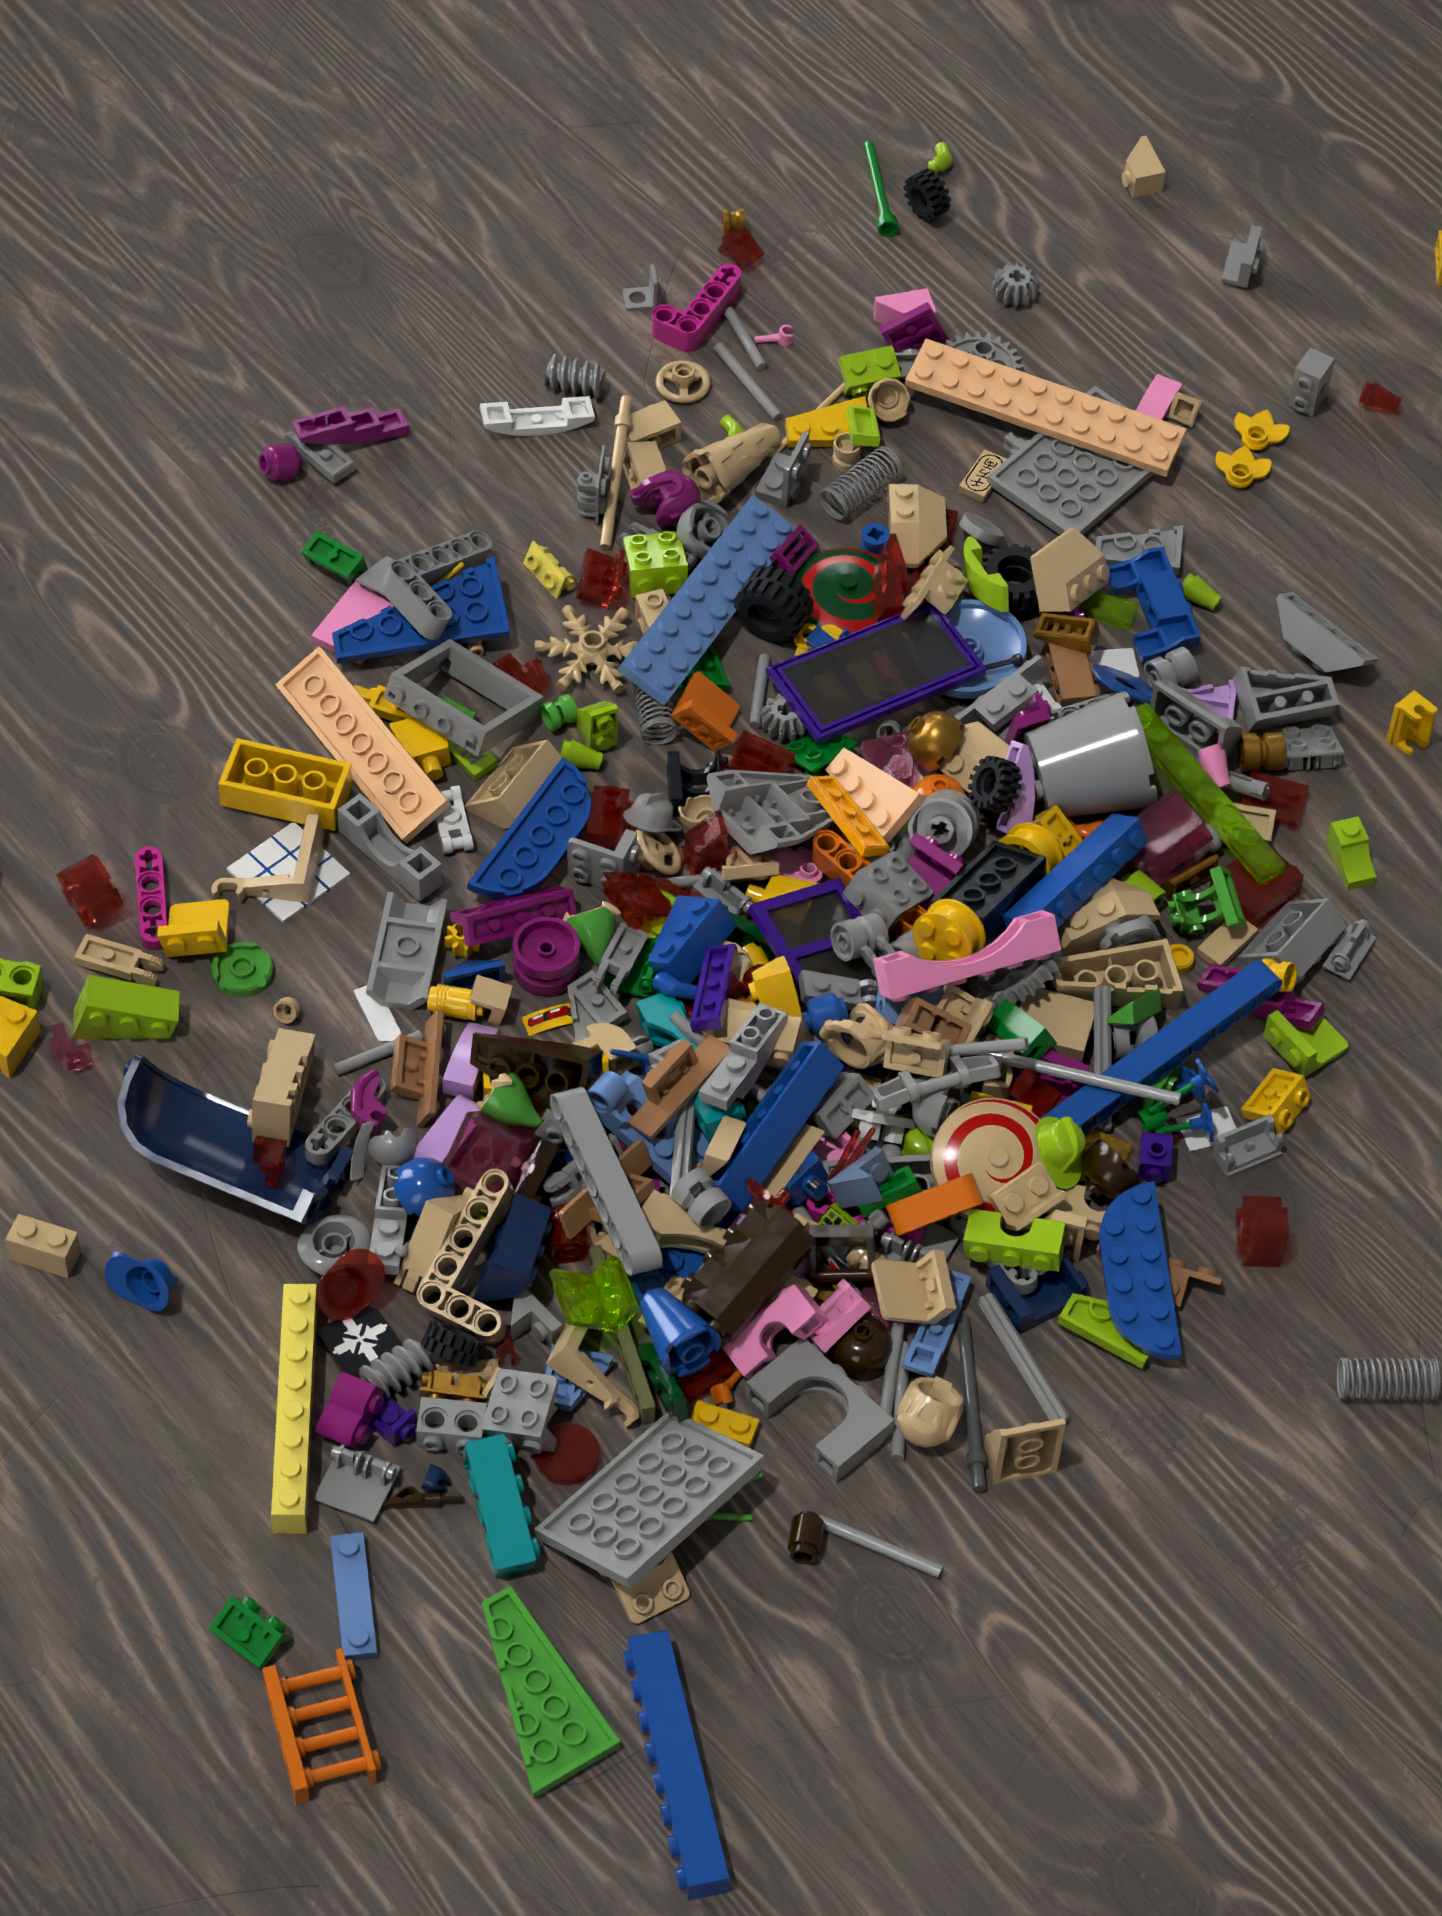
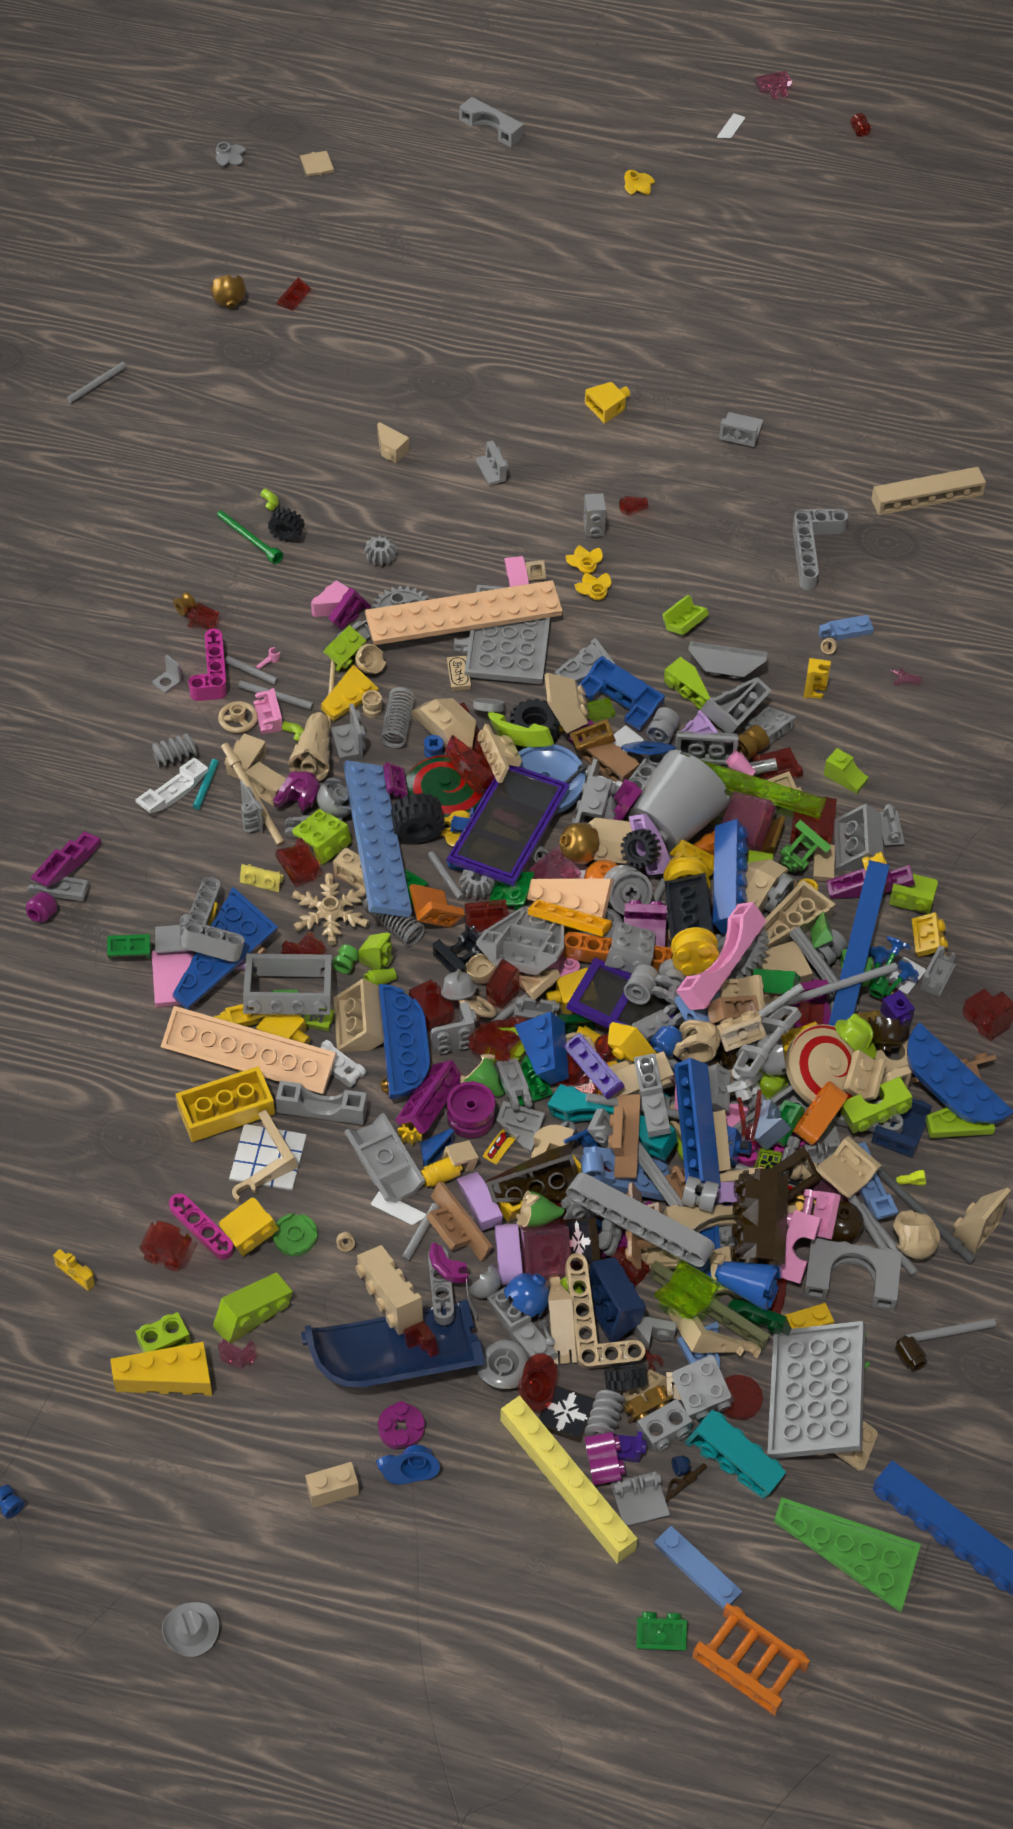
camera: 35 degrees left, 0 degrees up
(118, 960) = (216, 1278): tan hinge -> none
(173, 1221) = (401, 1438): none -> magenta plate
(579, 434) = (205, 784): none -> teal bar
(671, 986) = (561, 1081): blue arm -> none
(721, 395) = (268, 712): none -> bright pink hinge
(722, 1144) = (682, 1155): tan slope -> none
(722, 1392) = (791, 1300): orange hand -> none
(761, 1194) = (732, 1170): clear red piece -> none
(862, 426) = (372, 682): lime tile -> none
(996, 1355) = (915, 1178): none -> neon yellow piece
(1022, 1358) = (930, 1171): light grey axle -> none
(1199, 592) = (638, 670): lime cone -> none
(1249, 633) = (686, 681): none -> lime slope
(1318, 560) = (684, 616): none -> lime bracket

